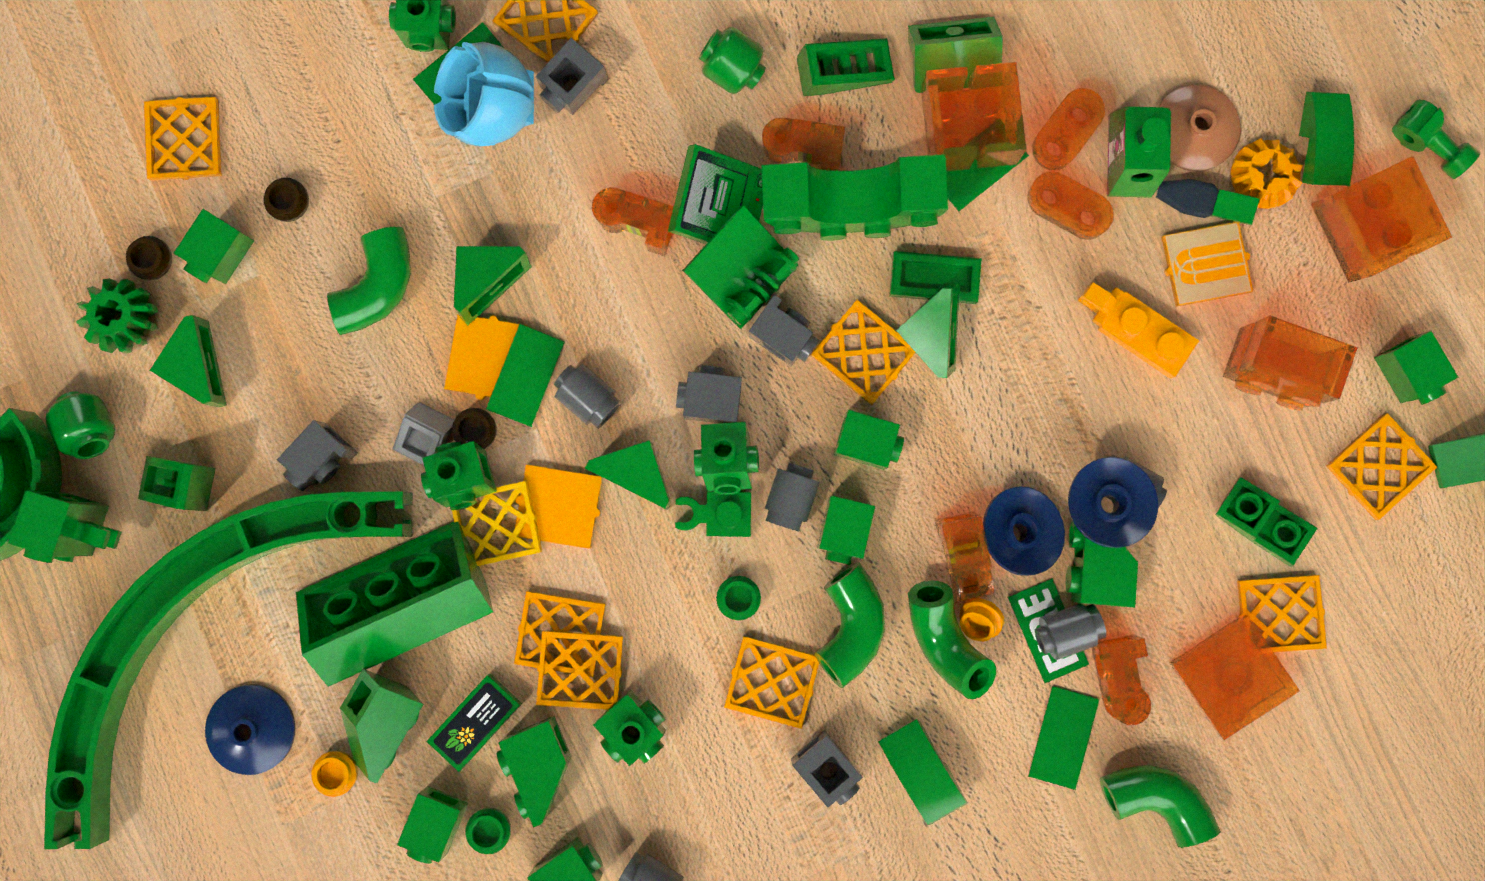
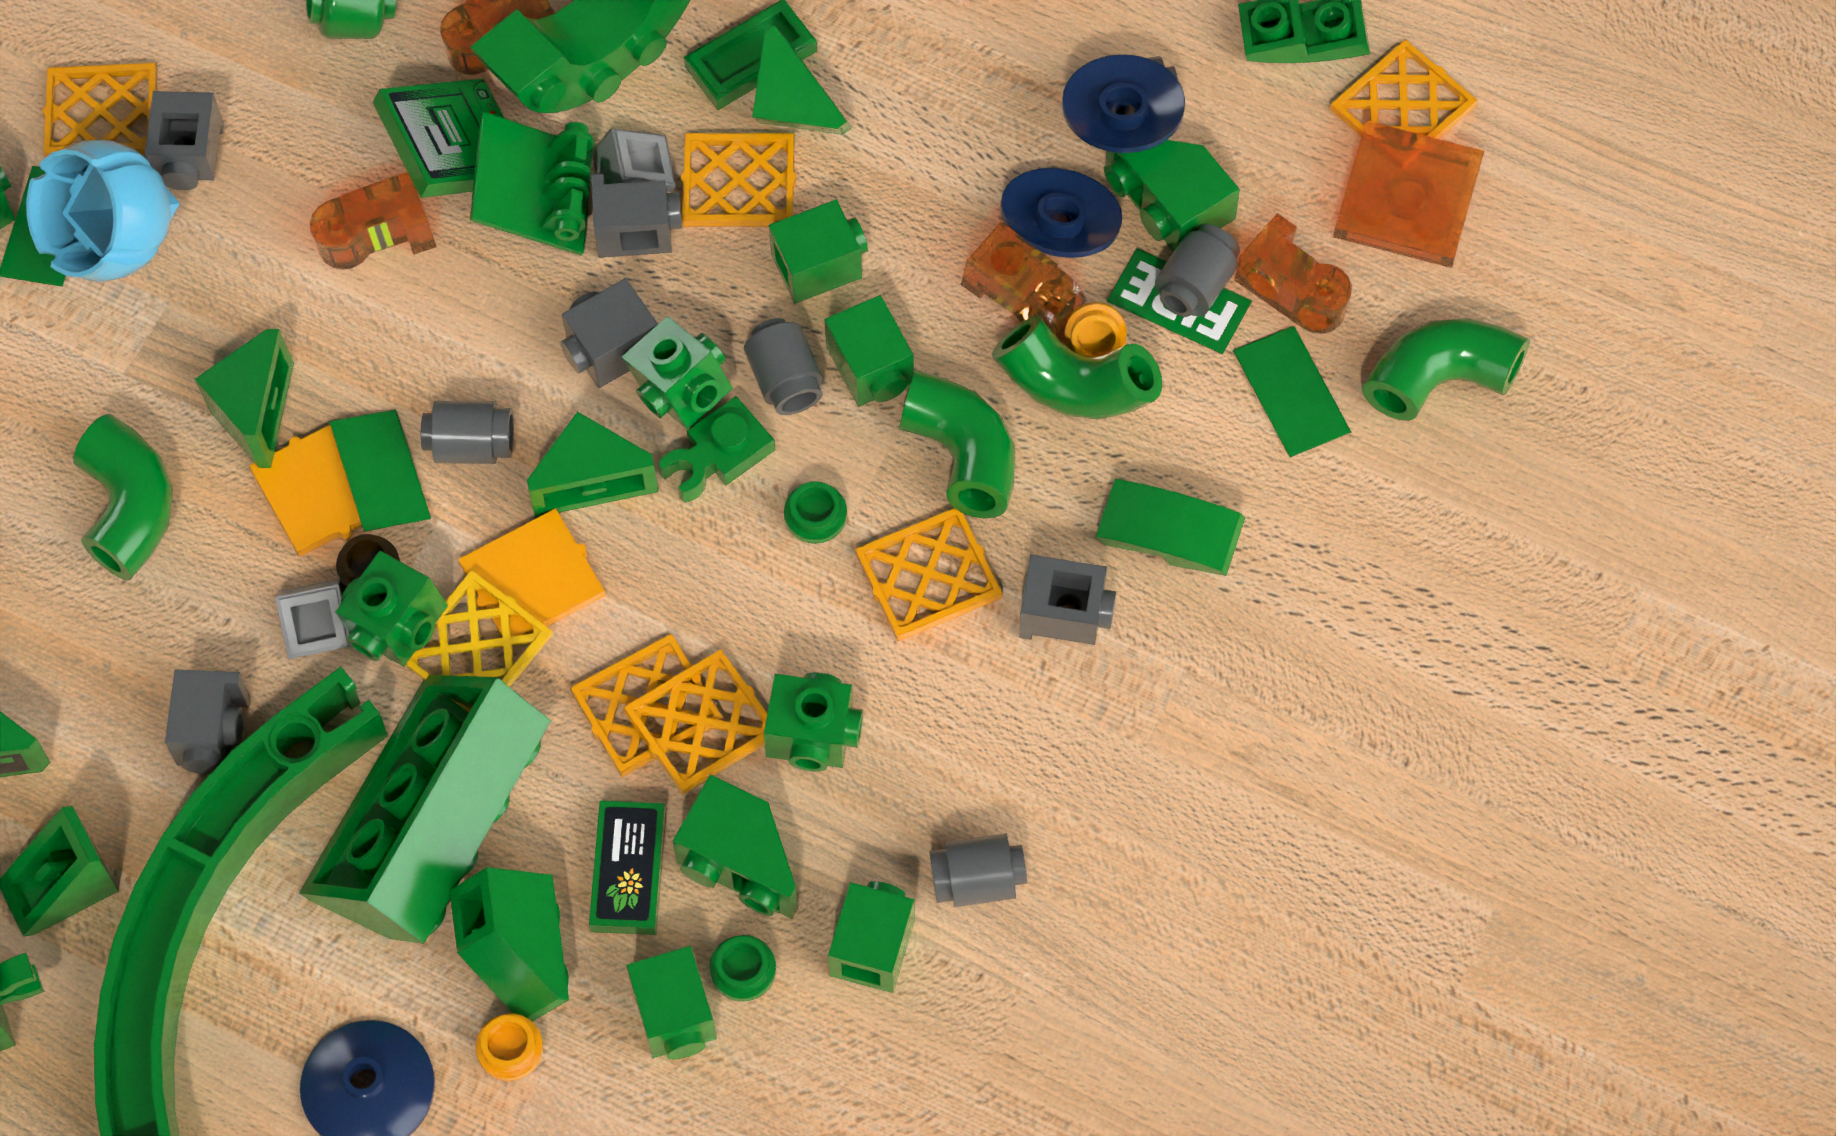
camera: 40 degrees left, 20 degrees down
(812, 296) = (633, 155): none -> light grey slope

